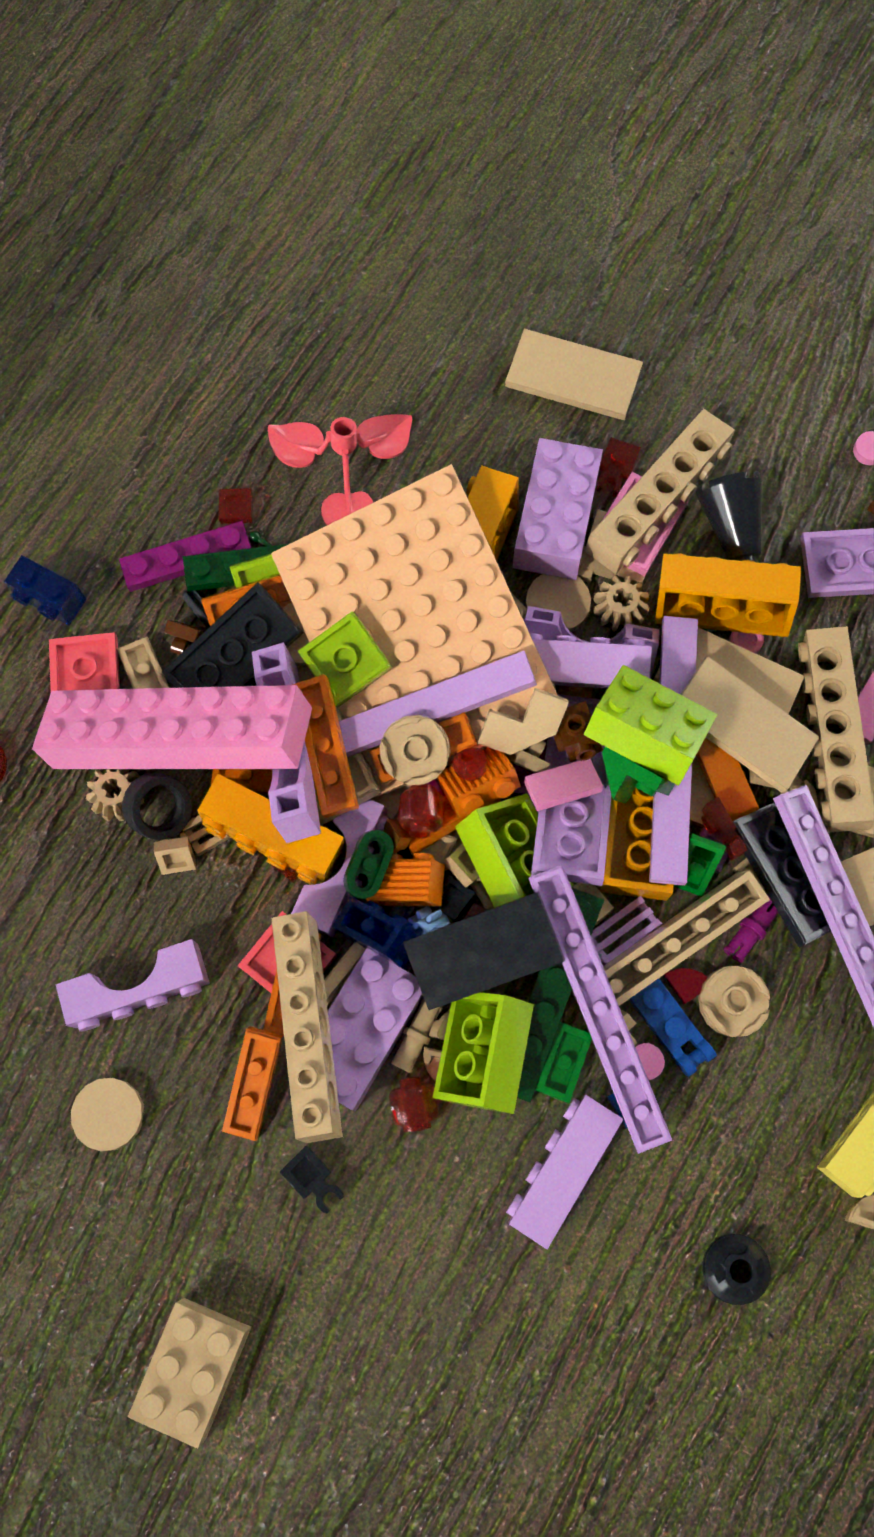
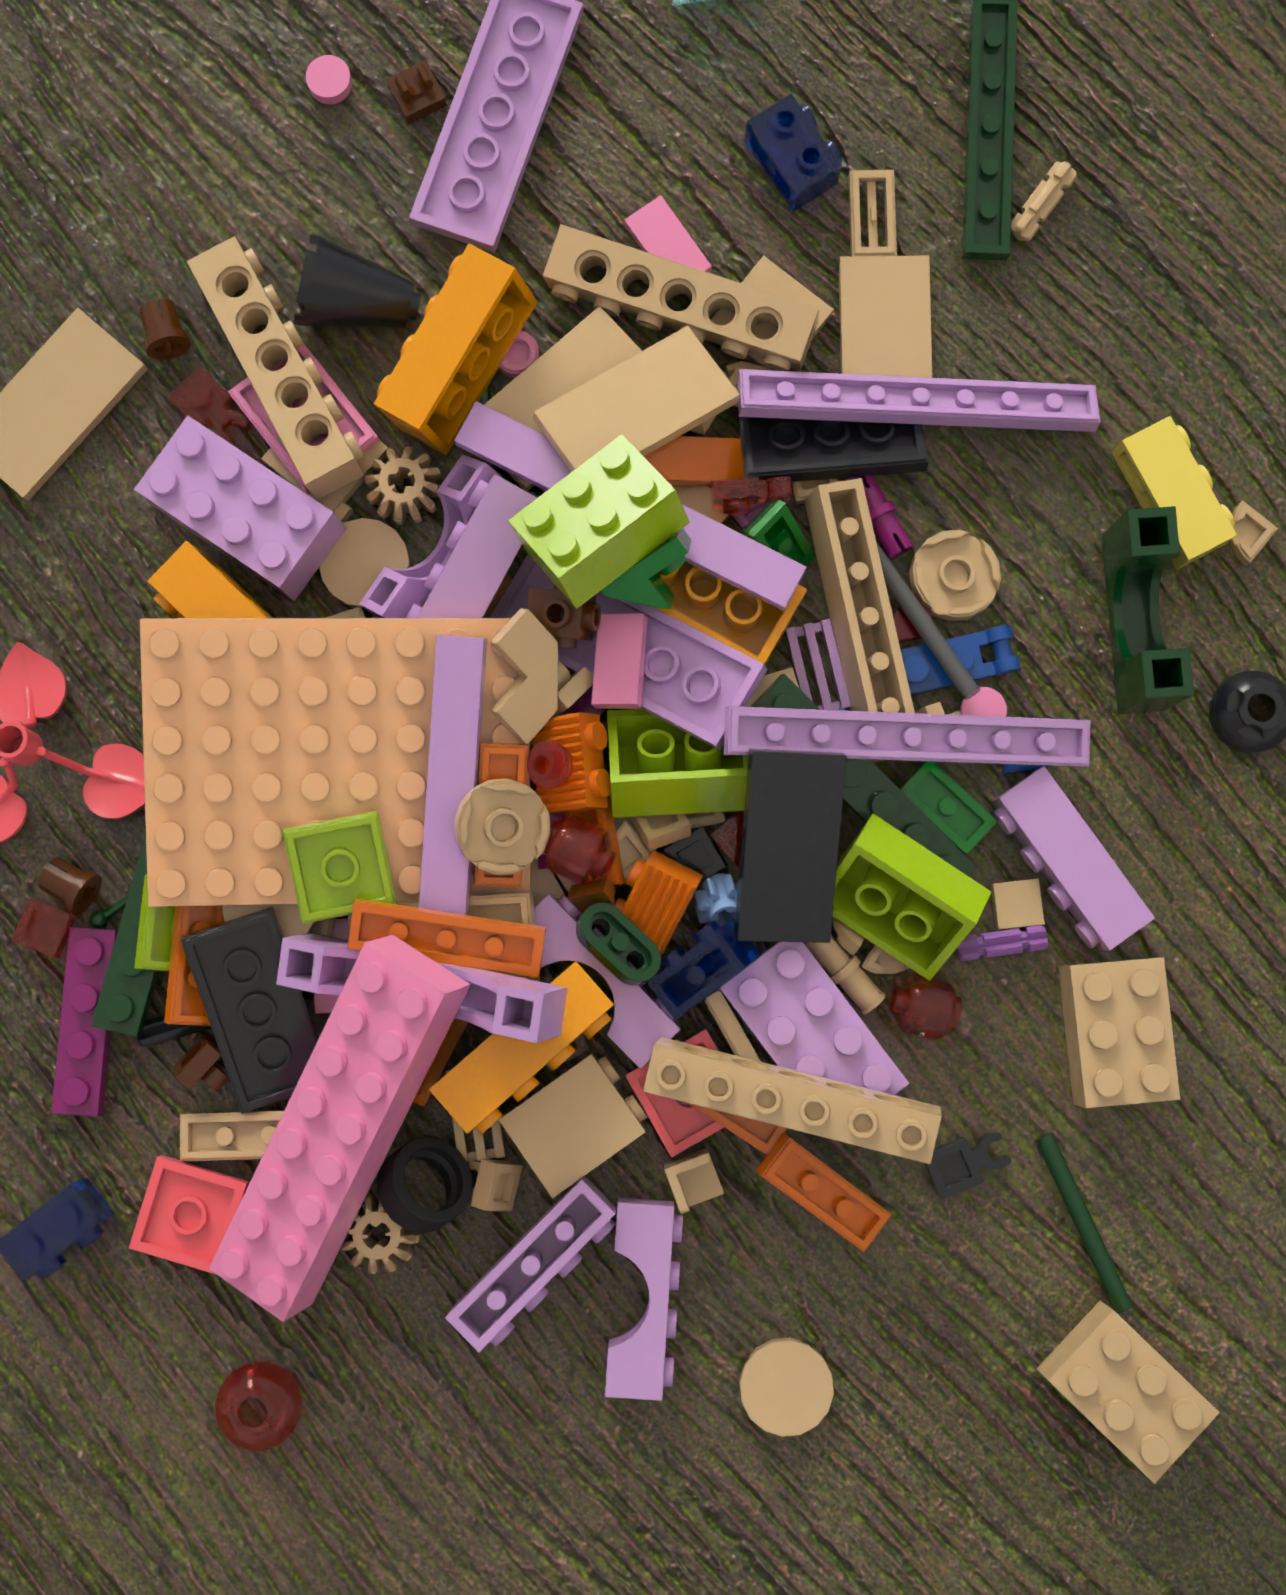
camera: 70 degrees left, 10 degrees up
(130, 898) = (525, 1269): none -> lavender brick
(227, 987) = (693, 1179): none -> tan panel
(236, 889) = (574, 1123): none -> tan panel
(269, 510) = (69, 885): none -> reddish brown bush
(302, 1291) = (1084, 1223): none -> dark green bar
(452, 1258) = (1119, 1032): none -> tan brick
(483, 1144) = (1003, 943): none -> medium lavender axle
(516, 1144) = (1017, 904): none -> tan tile
(651, 418) = (163, 331): none -> reddish brown bush
(687, 990) = (927, 629): none -> dark grey bar
(804, 1128) = (1134, 558): none -> dark green arch

